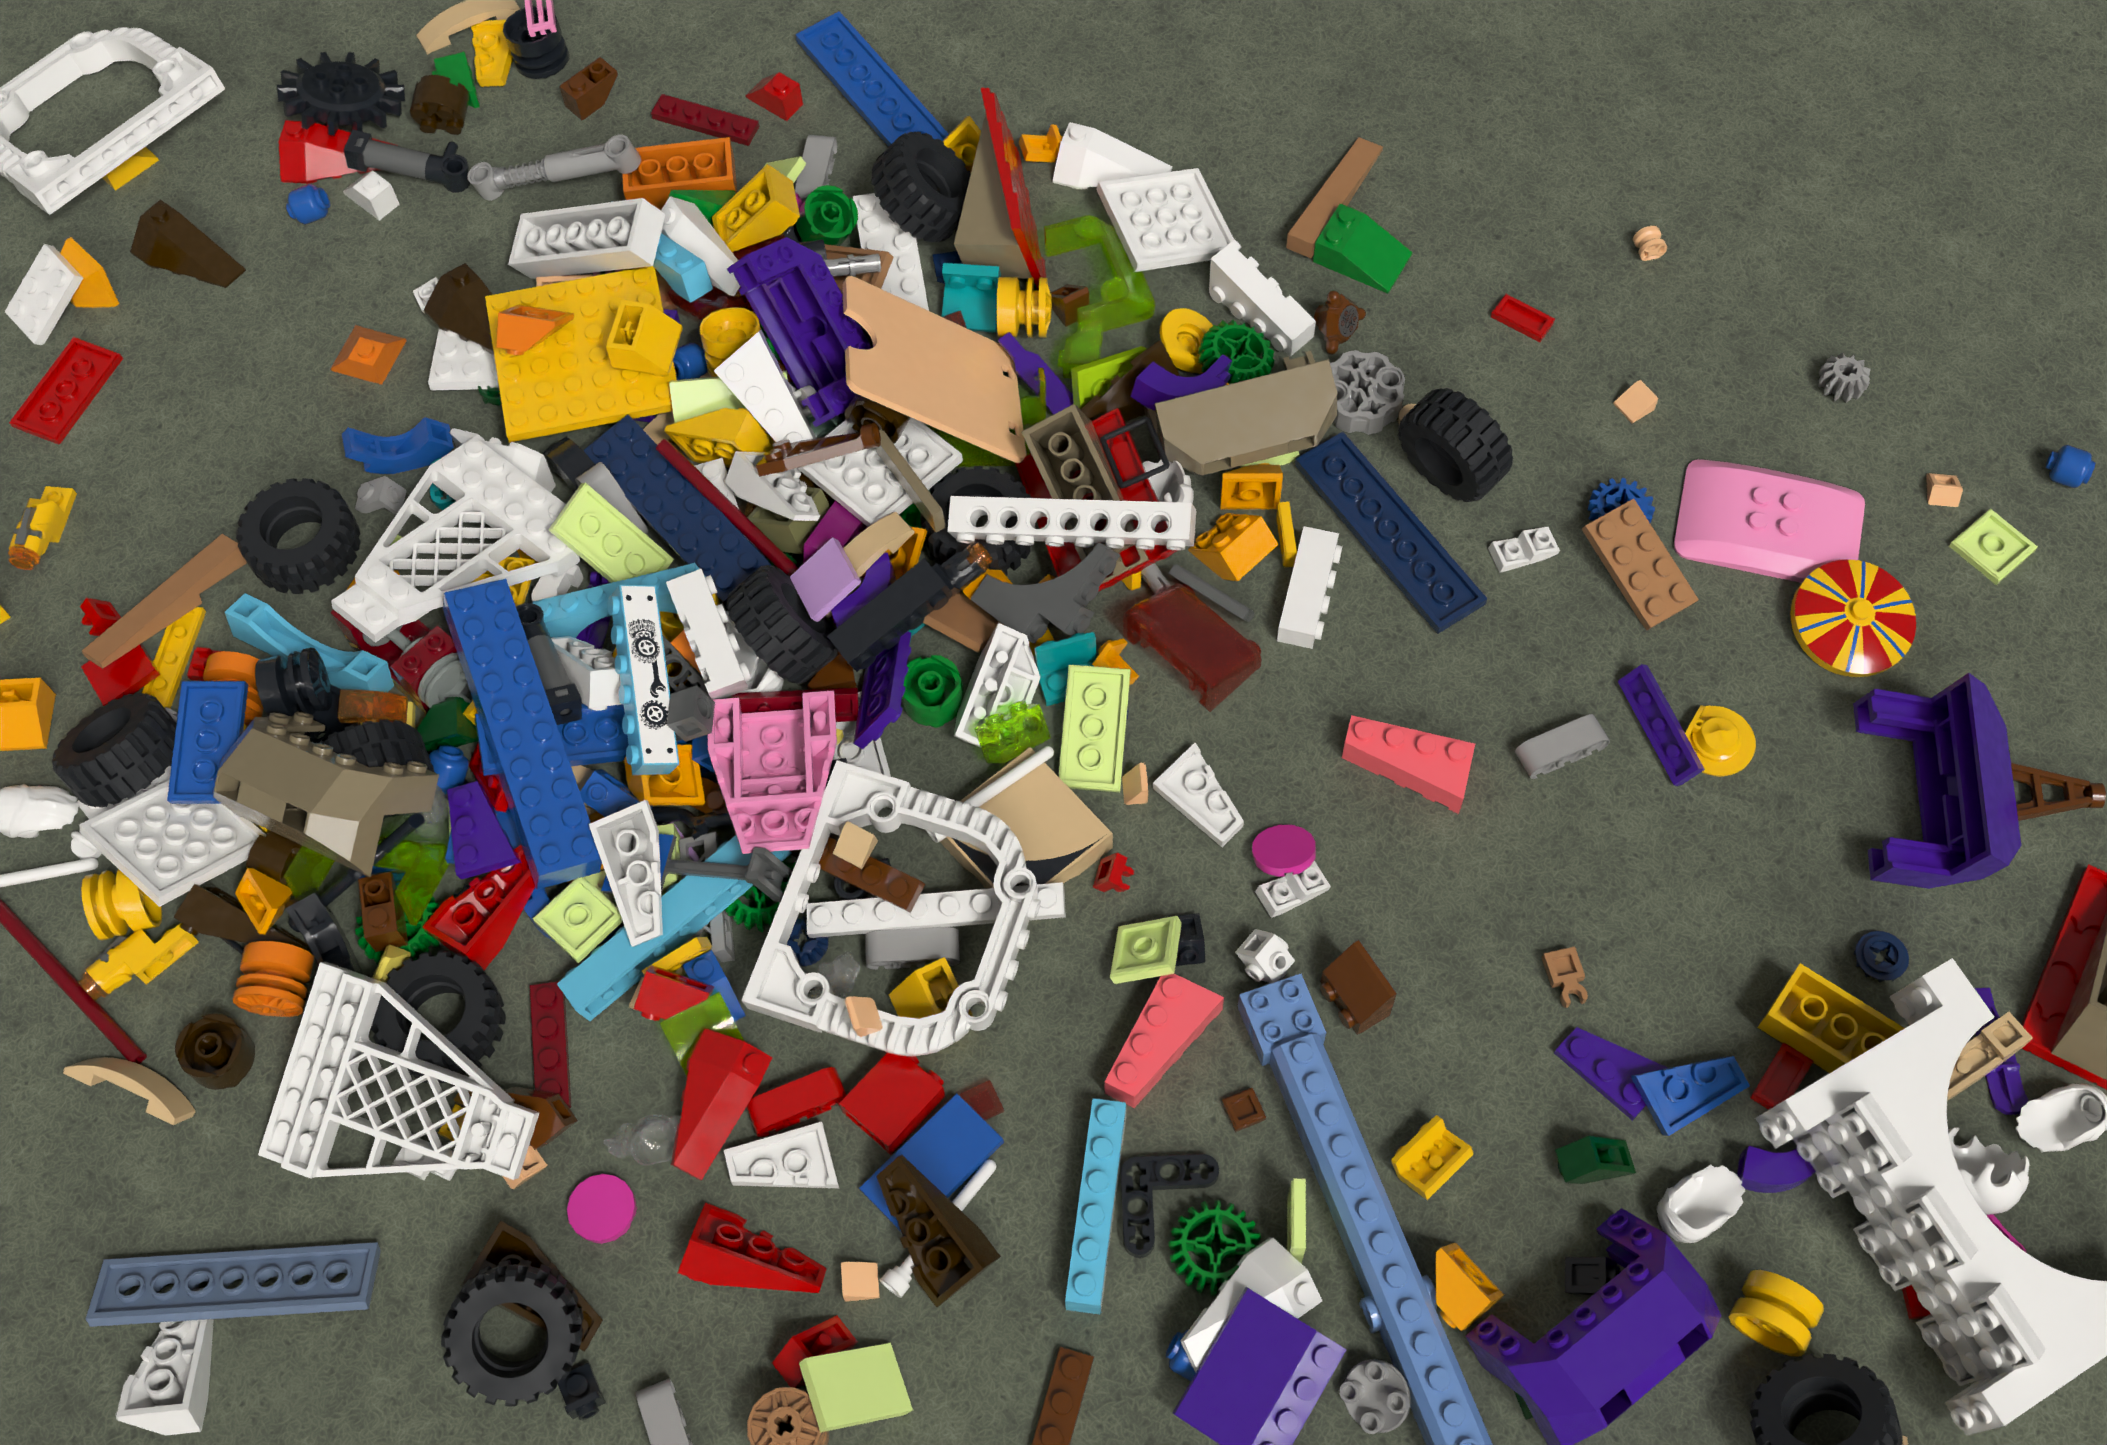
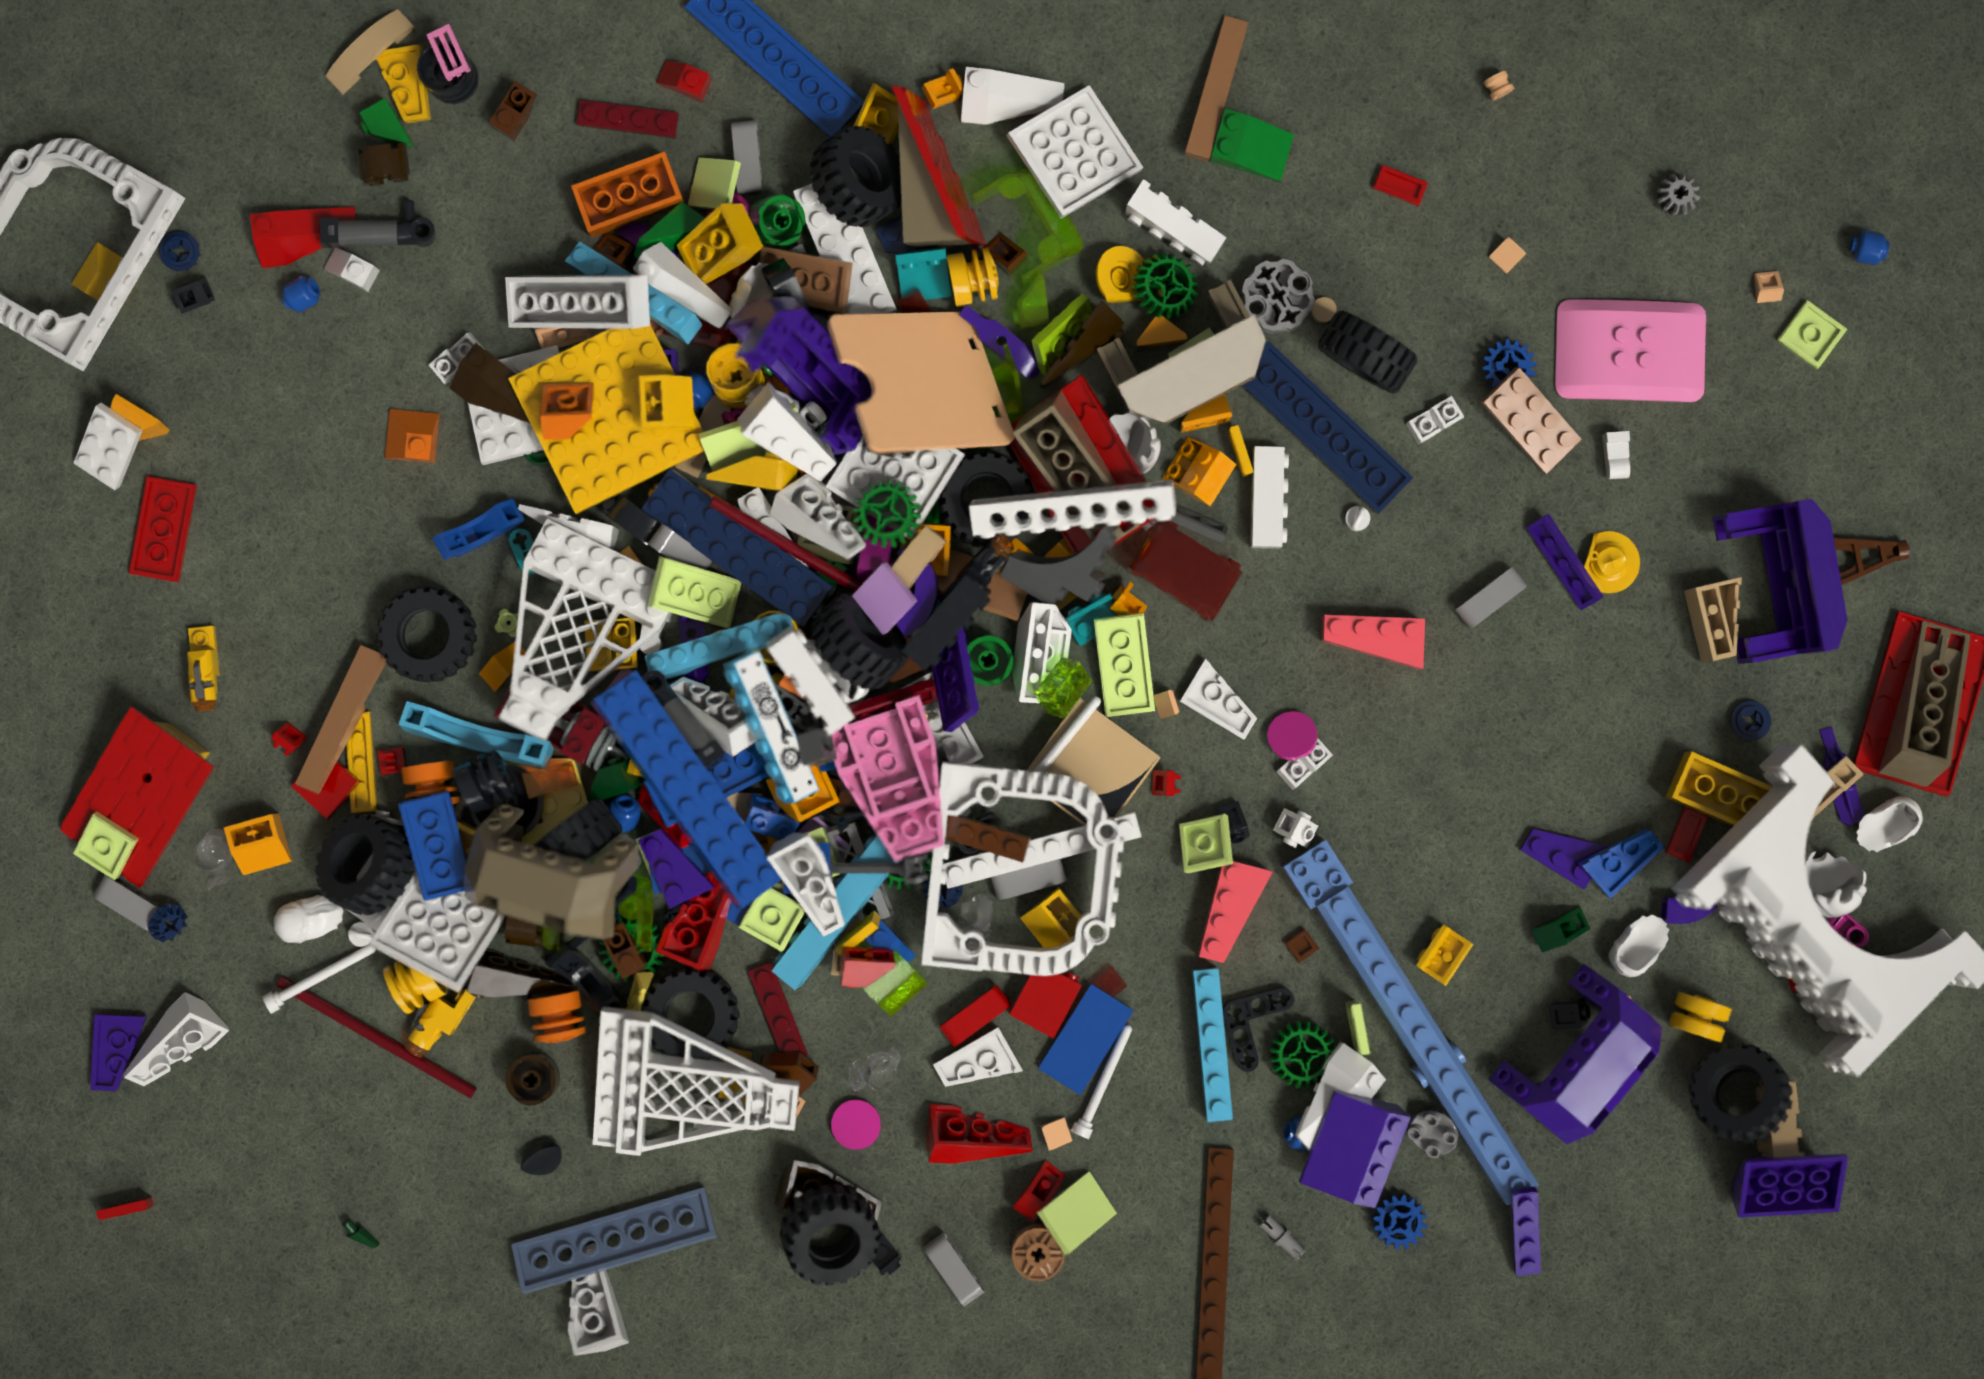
camera: 15 degrees left, 25 degrees up
(164, 1098) = (479, 1111): tan slope -> none
(175, 244) = (201, 364): dark brown wedge -> none
(189, 1160) = (541, 1157): none -> black piece
(198, 185) = (201, 291): none -> black brick
(200, 143) = (174, 241): none -> dark blue gear
(262, 899) = (529, 961): light orange slope -> none
(340, 93) = (271, 184): black gear -> none
(380, 494) = (476, 576): light grey bracket -> none
(613, 155) = (518, 216): light grey piece -> none
(717, 1091) = (917, 1024): red wedge -> none
(788, 455) = (817, 485): reddish brown plate -> none
(854, 265) = (806, 296): light grey pin -> none
(854, 499) = (890, 503): none -> green gear
(855, 845) = (976, 831): tan slope -> none
(863, 1015) = (1017, 960): light nougat slope -> none
(911, 483) = (929, 495): dark tan tile -> none
(940, 1238) = (1109, 1097): dark brown wedge -> none
(1104, 438) = (1108, 389): black piece -> none
(1159, 385) = (1124, 353): dark purple arch -> none
(1337, 320) = (1244, 228): reddish brown rock -> none
(1357, 989) = (1368, 840): reddish brown slope -> none
(1412, 632) = (1357, 518): none -> white tile
(1462, 1288) = (1482, 1045): light orange slope -> none
(1565, 971) = (1518, 786): medium nougat plate -> none
(1740, 620) = (1616, 454): none -> white leg
(1844, 820) = (1715, 618): none -> tan wedge
(1853, 618) = (1705, 431): dish -> none

